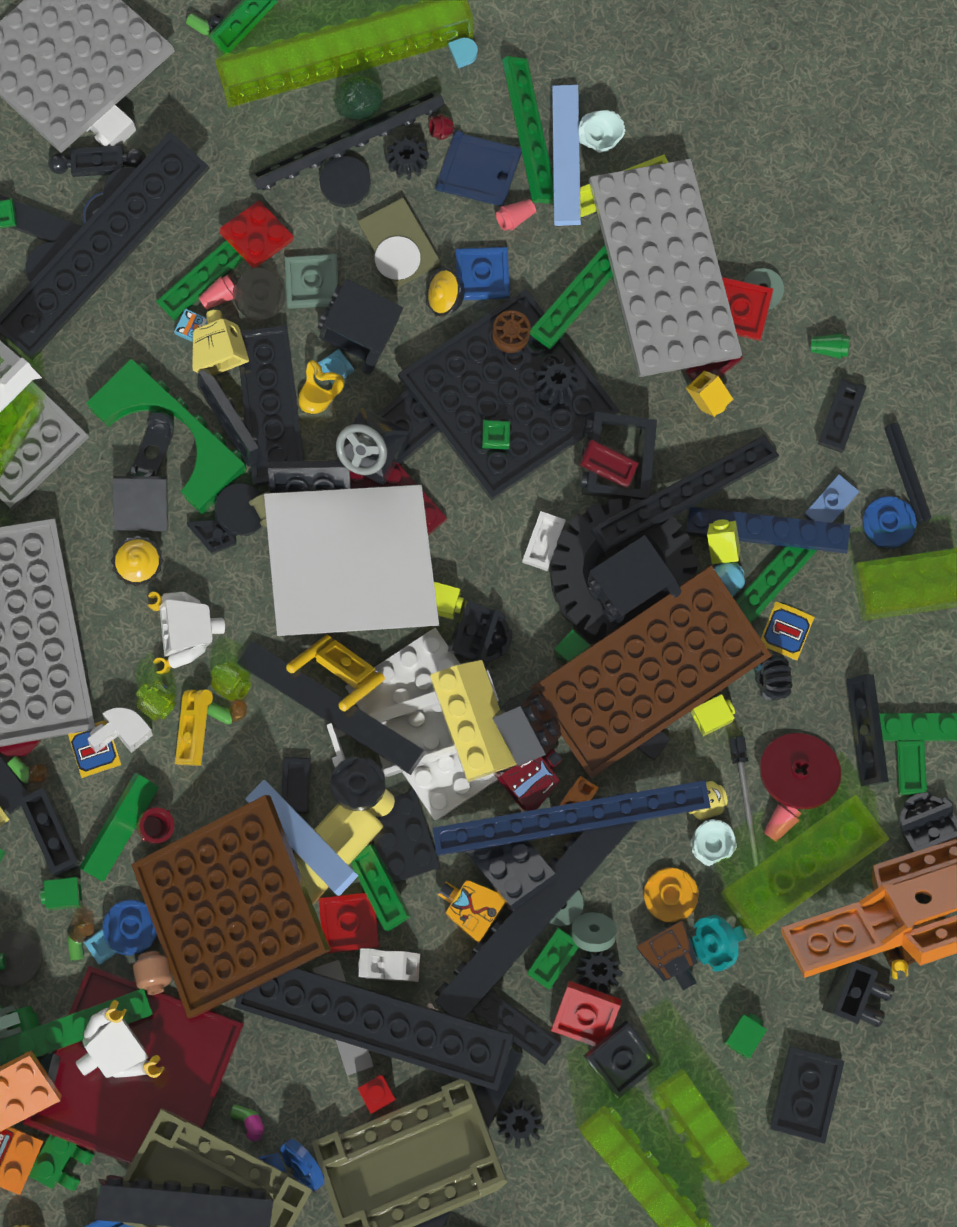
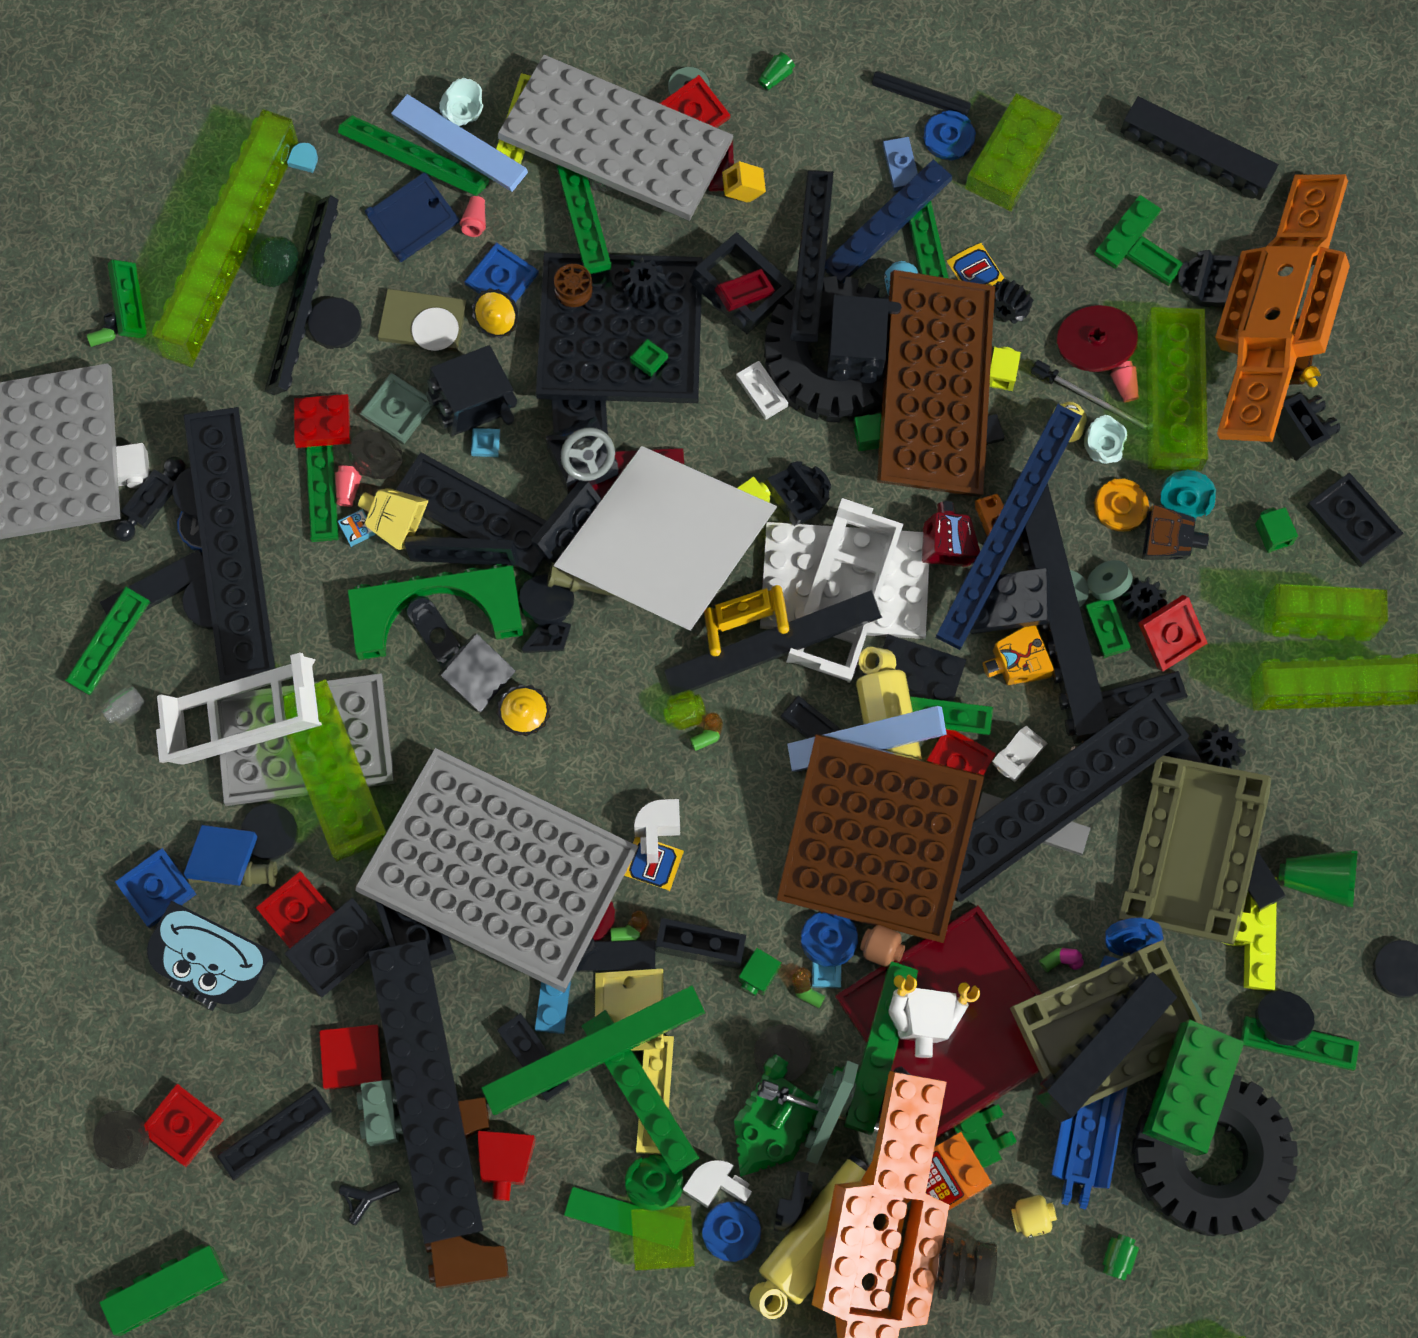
camera: 55 degrees left, 5 degrees down
(118, 827) = (737, 887): green tile -> none
(155, 700) = (654, 780): clear neon green head -> none
(155, 825) = (761, 854): dark red piece -> none
(184, 627) = (612, 712): white torso -> none
(192, 727) = (700, 768): yellow plate -> none
(314, 398) = (498, 477): yellow piece -> none
(357, 783) = (859, 661): black tile -> none
(376, 1094) = (1116, 839): red brick -> none
(417, 159) = (359, 268): black gear -> none
(440, 127) = (352, 218): dark red plate -> none
(469, 711) = (876, 538): light yellow slope -> none
(527, 726) = (912, 500): black brick -> none
(621, 1059) = (1227, 634): black tile -> none
(723, 541) = (873, 257): neon yellow brick -> none
(841, 416) = (838, 104): black plate -> none
(867, 730) = (1102, 268): black plate -> none

